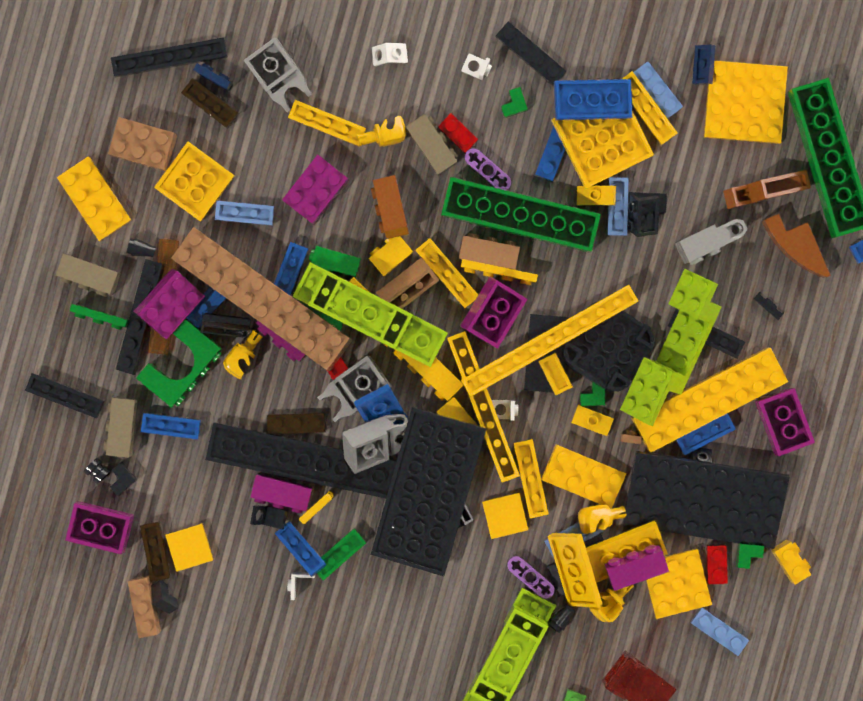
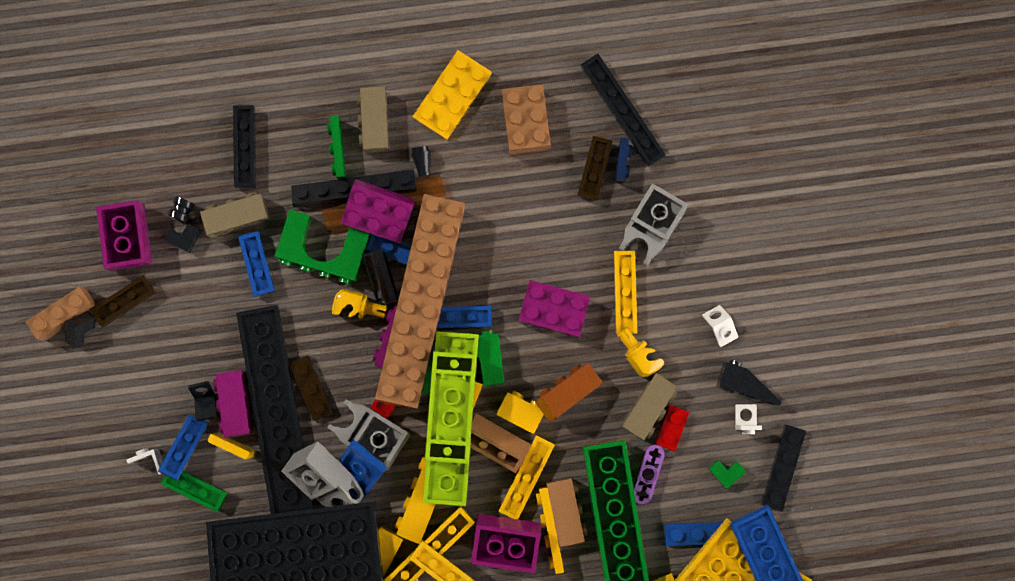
camera: 65 degrees right, 5 degrees down
(189, 547) = (141, 333): yellow tile -> none
(194, 181) = (511, 185): yellow plate -> none
(244, 213) = (500, 248): medium blue plate -> none
(444, 56) = (743, 382): none -> black slope

